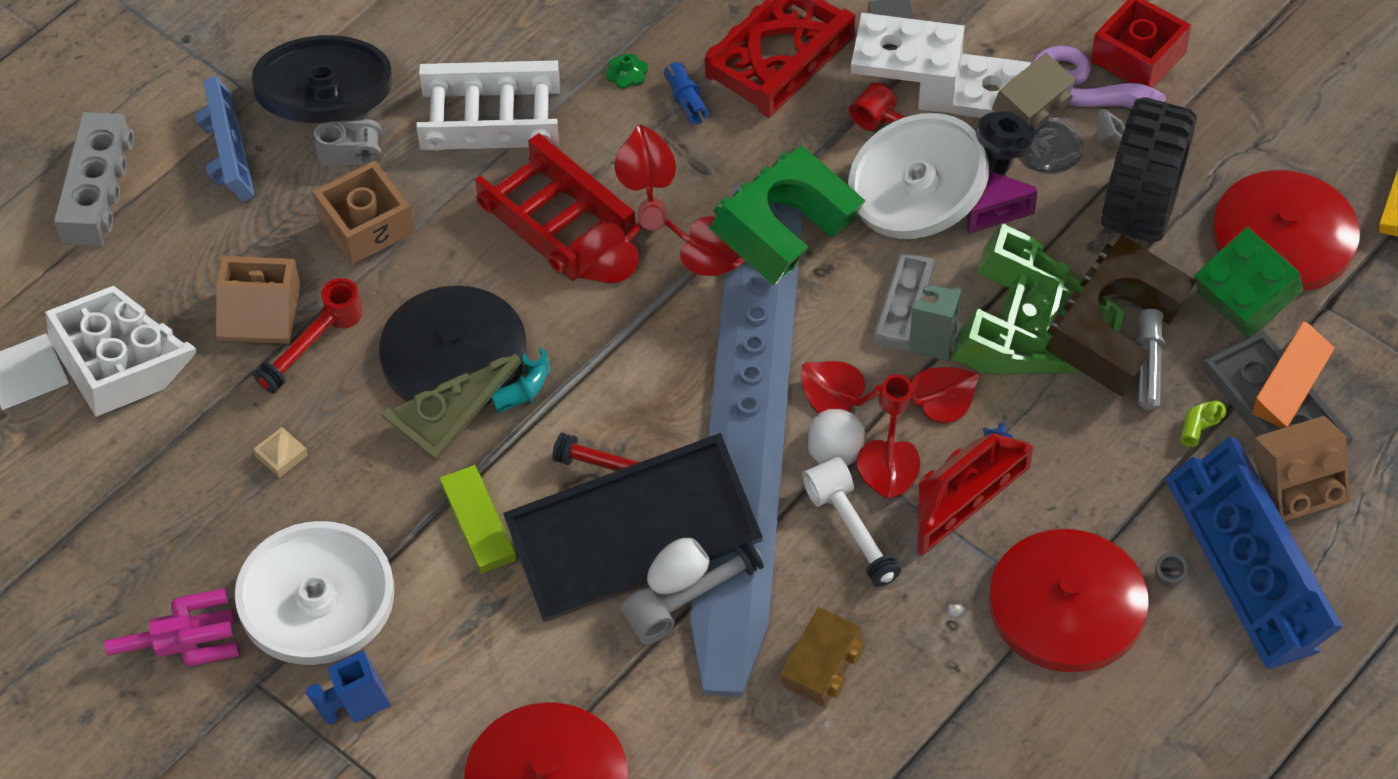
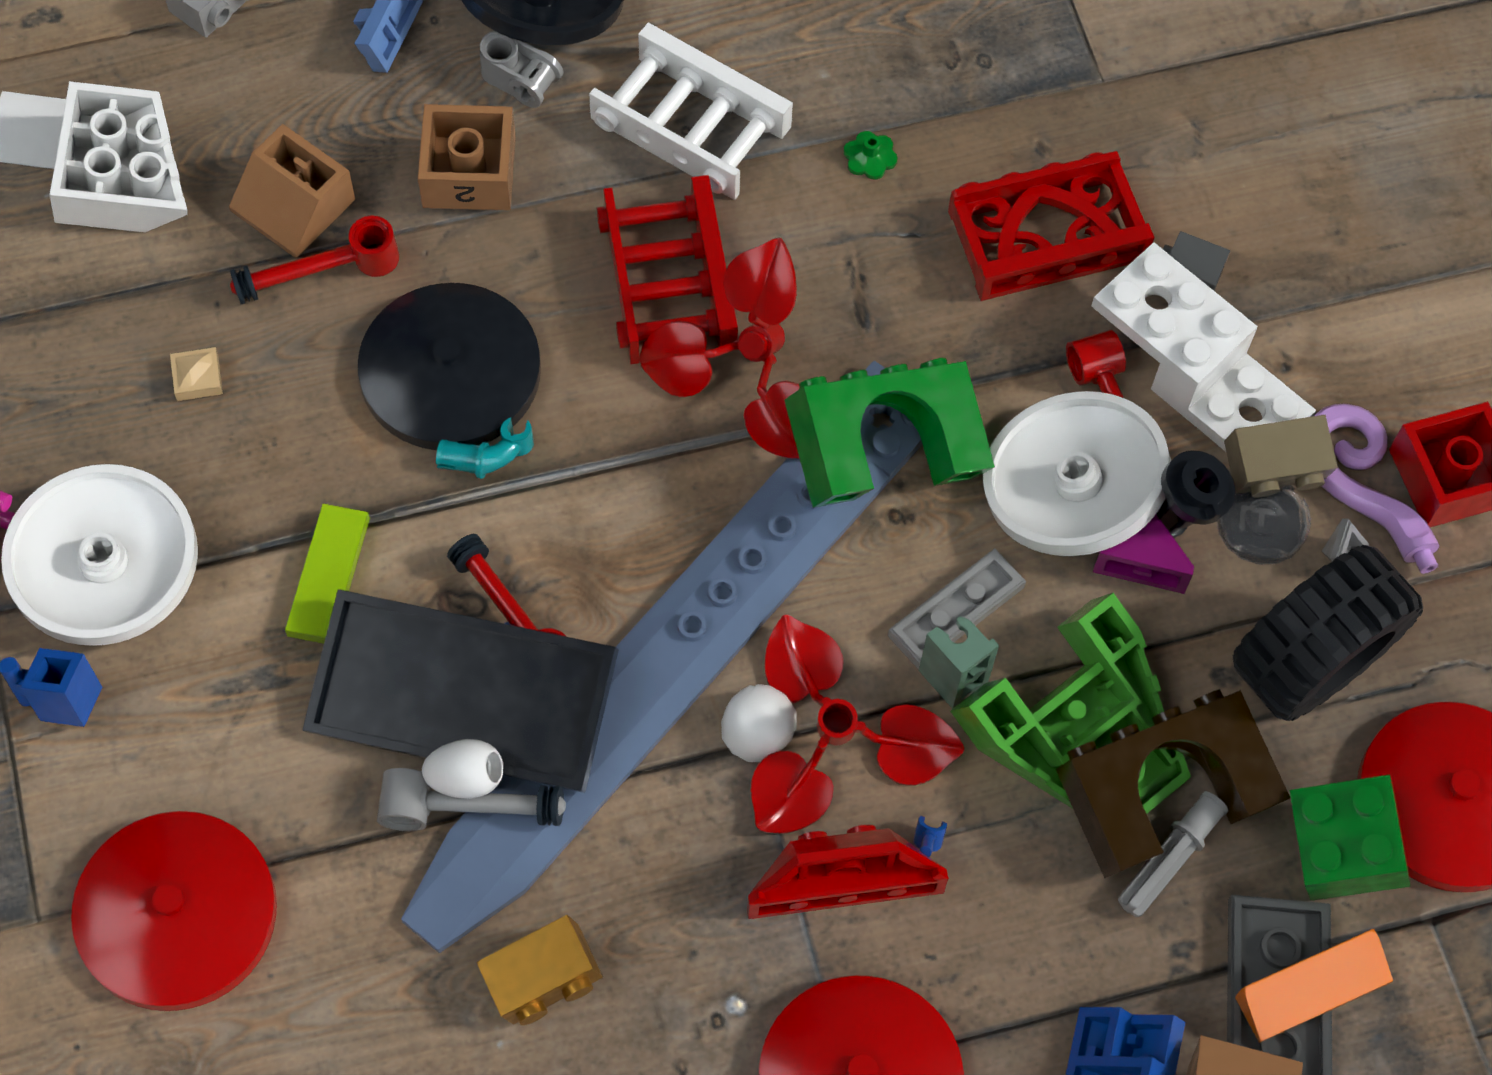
camera: 30 degrees right, 10 degrees up
(441, 415) = (374, 435): olive wing -> none
(686, 93) = (908, 219): blue pin -> none
(830, 484) = (705, 774): white piece -> none
(1201, 418) = (1174, 962): lime arm -> none

